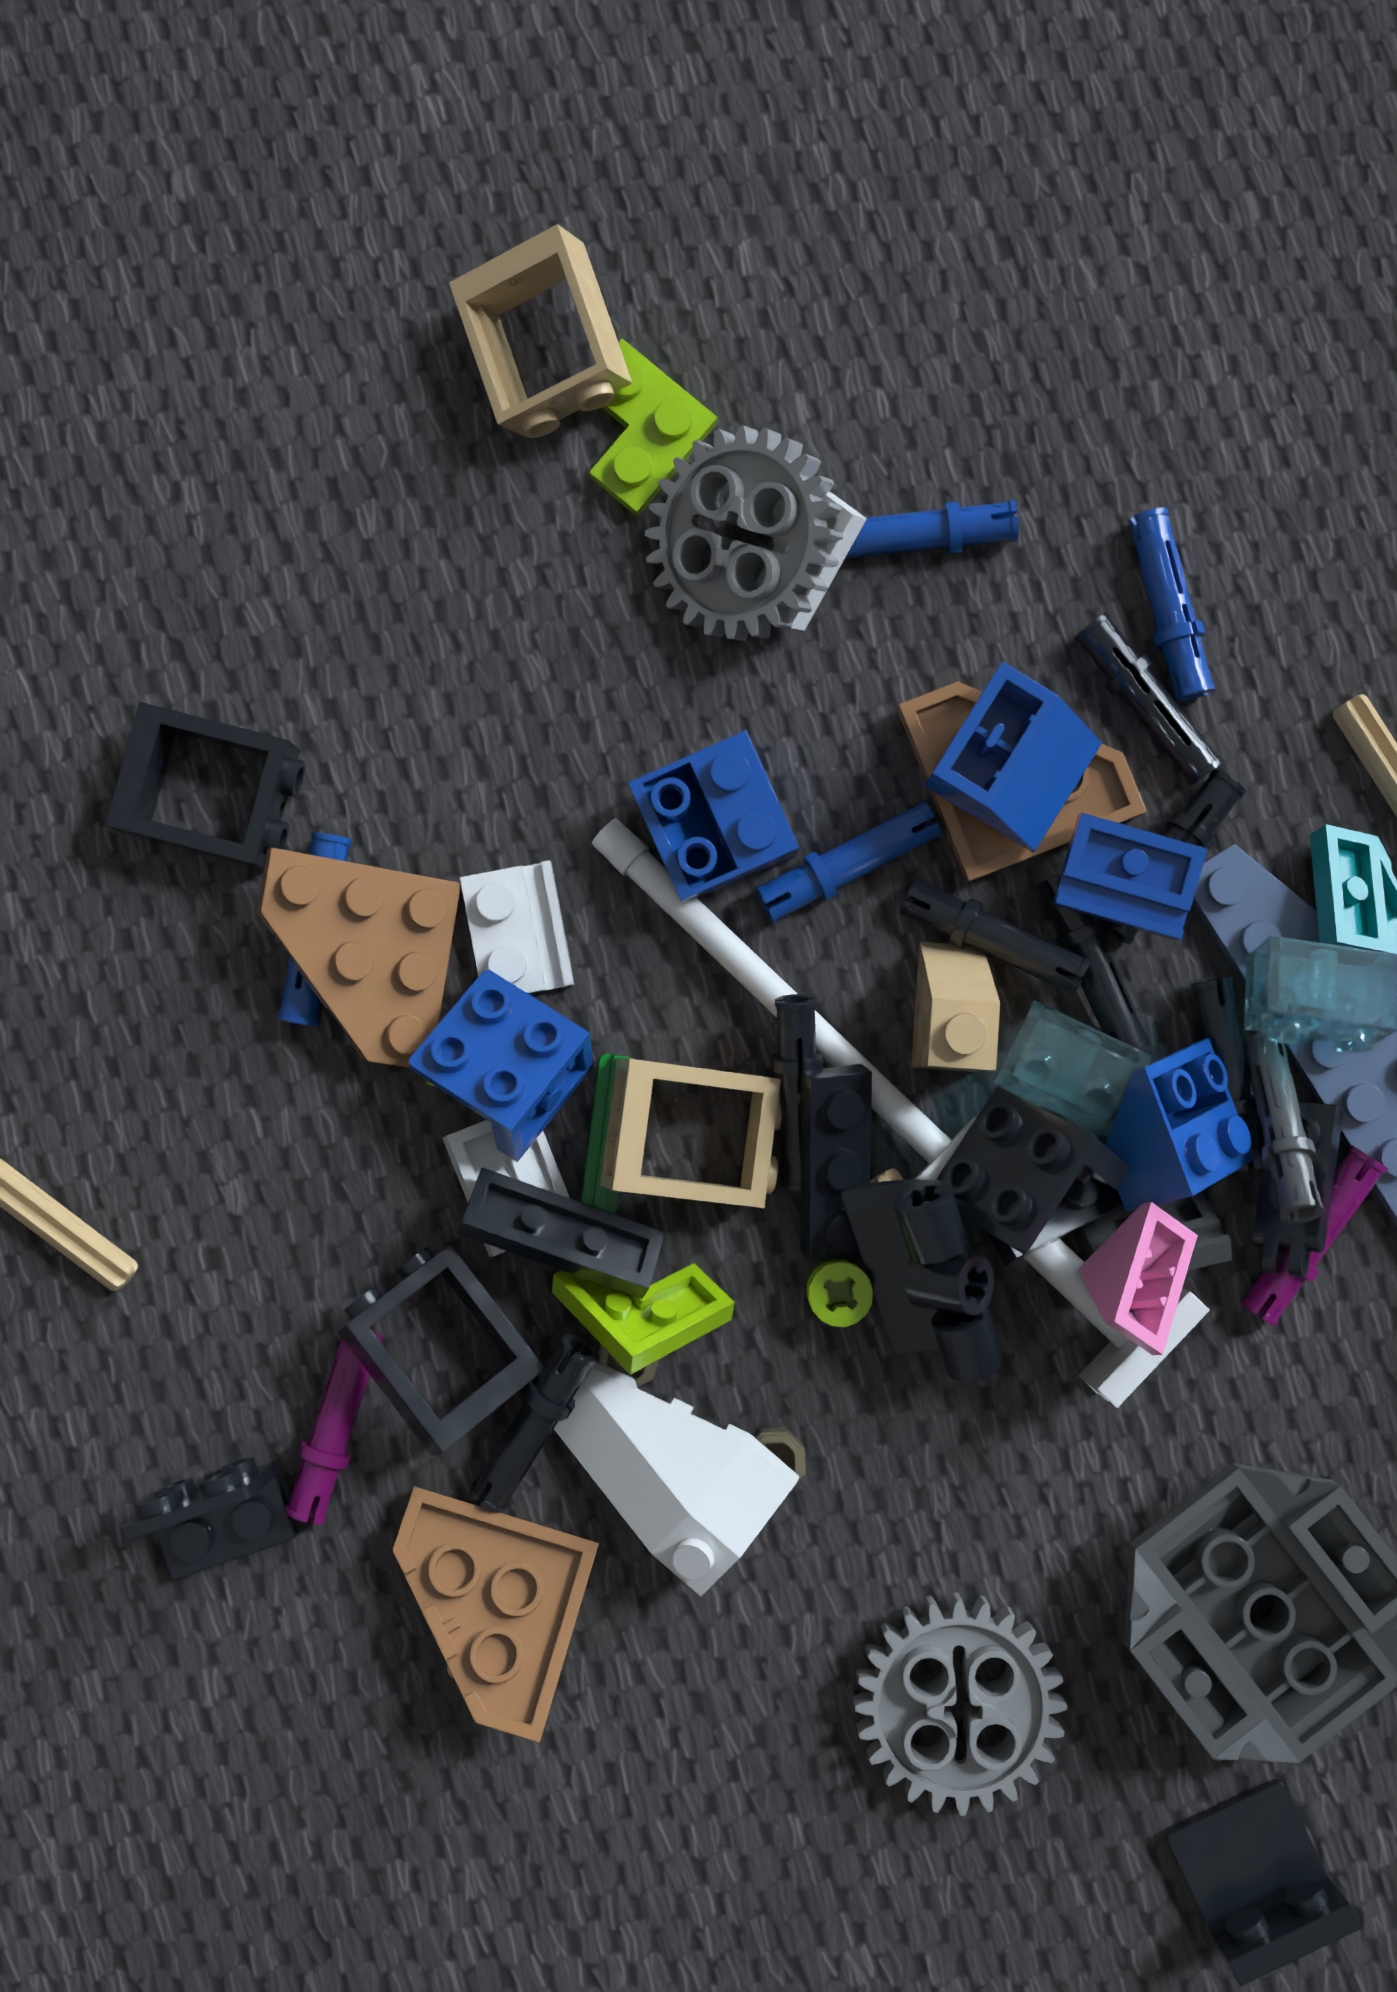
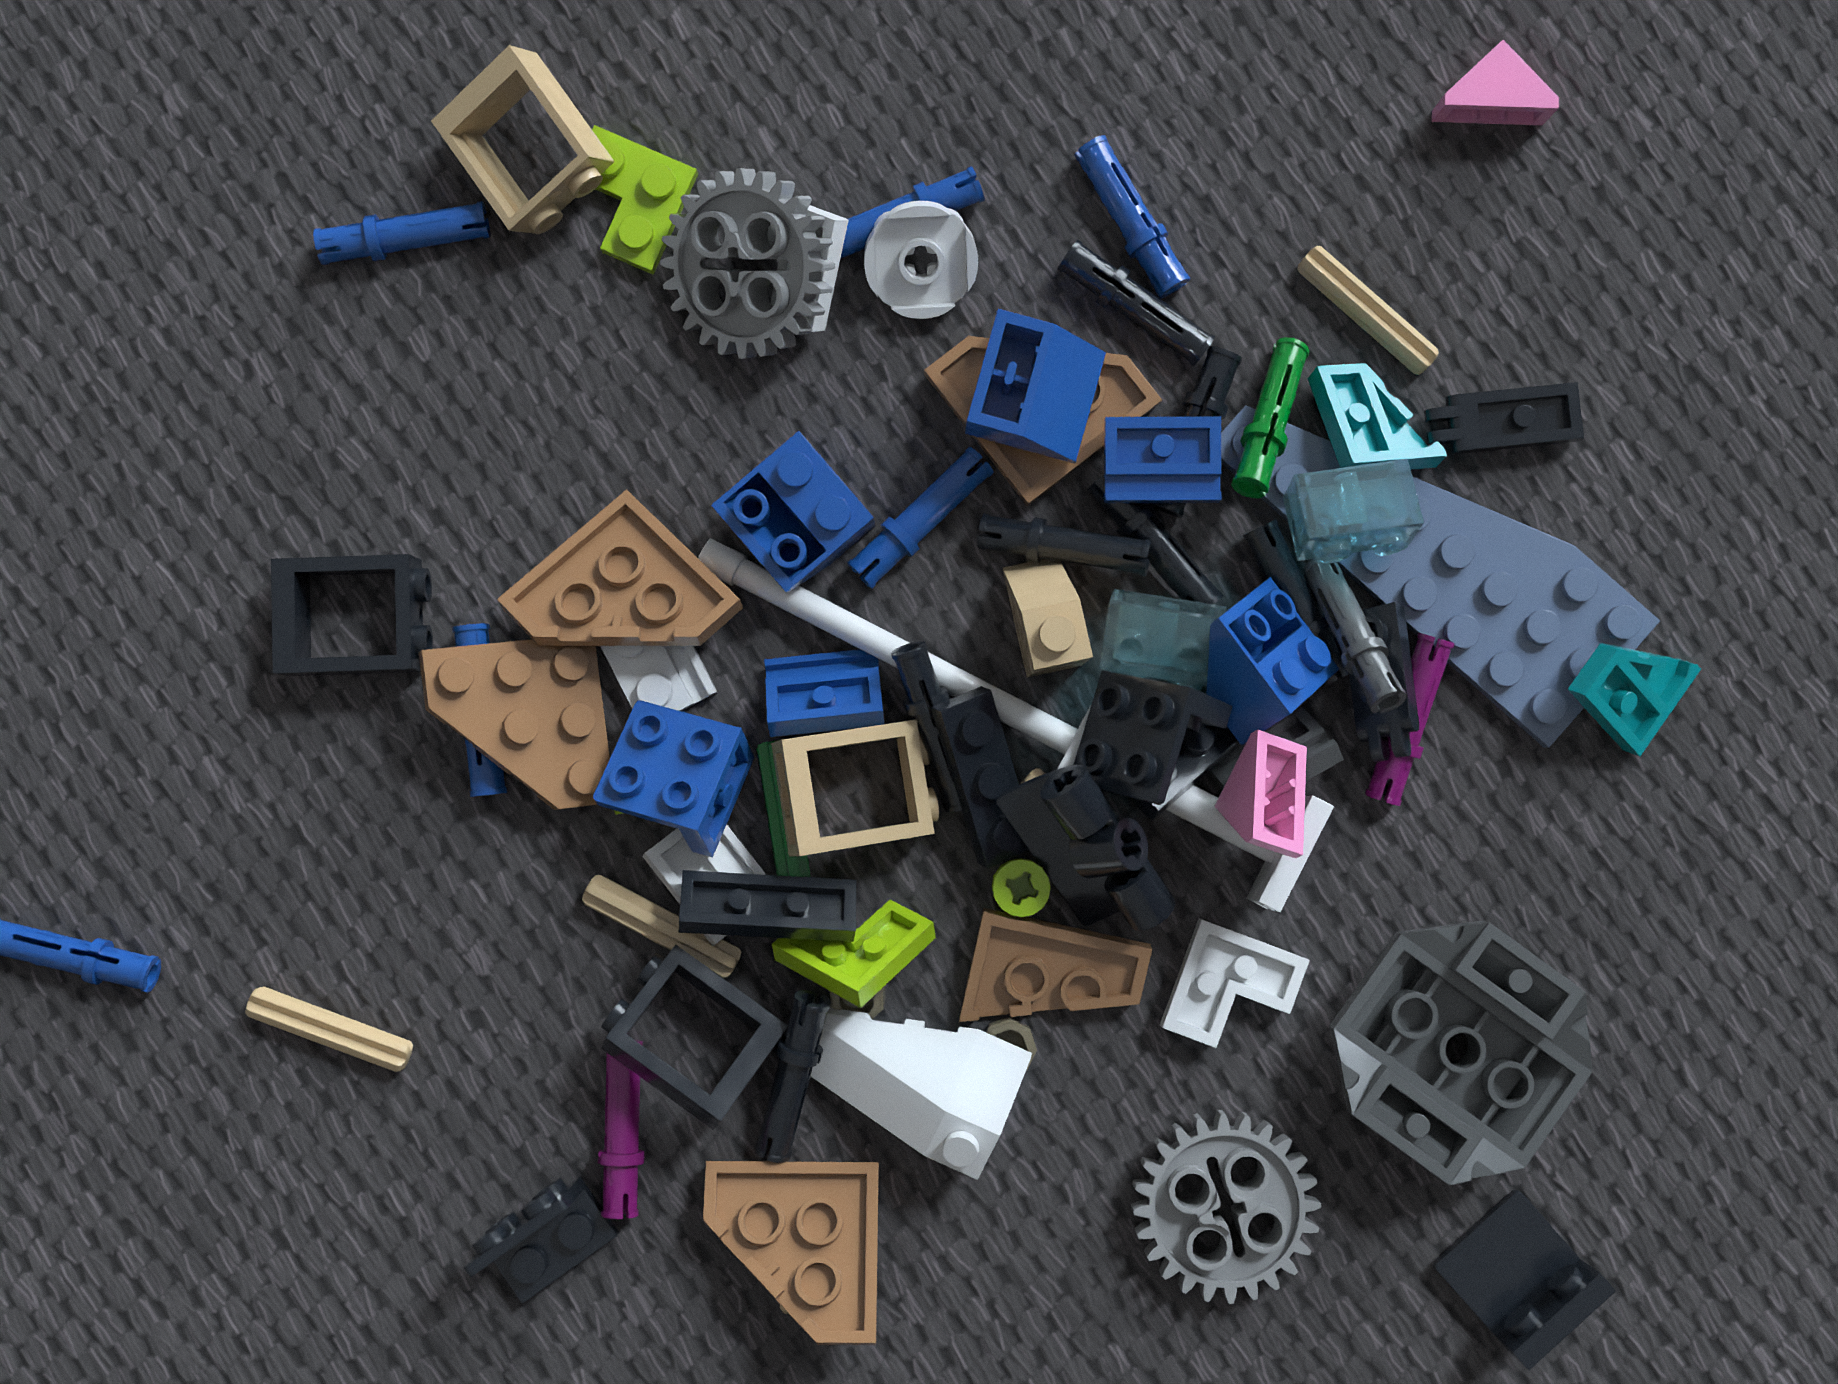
camera: 20 degrees left, 0 degrees up
(381, 394) = (401, 233): none -> blue pin
(436, 1215) = (657, 924): none -> tan axle
(505, 841) = (621, 586): none -> medium nougat plate
(688, 1020) = (823, 692): none -> blue plate
(844, 1387) = (1045, 965): none -> medium nougat wing
(950, 614) = (897, 235): none -> white plate
(1033, 1442) = (1218, 968): none -> white plate
(1248, 883) = (1266, 436): none -> green pin

